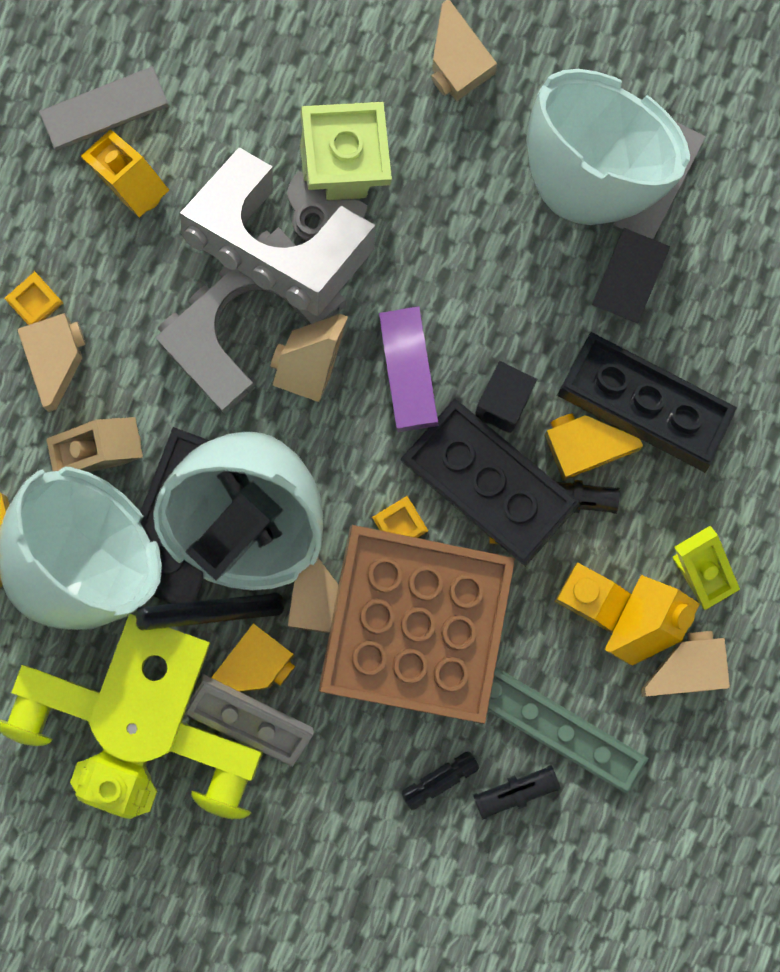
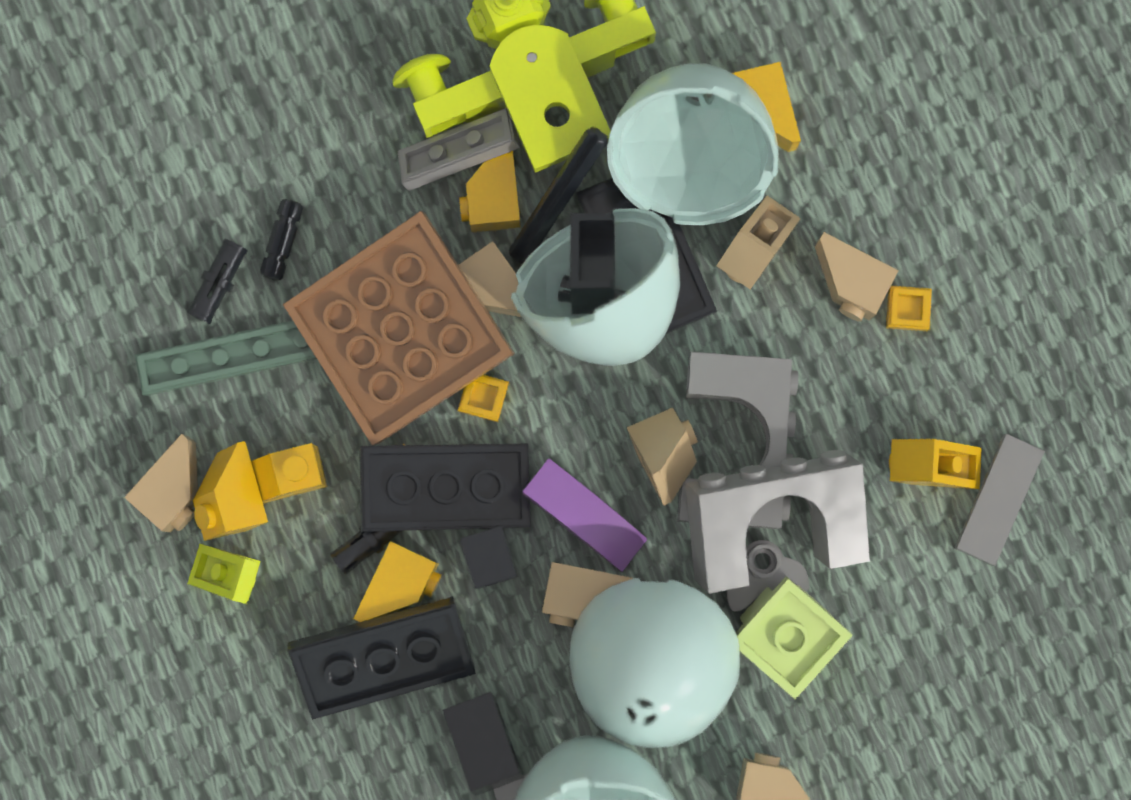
camera: 135 degrees right, 0 degrees up
(452, 222) = (656, 647): none -> light aqua piece
(462, 316) = (572, 590): none -> tan slope

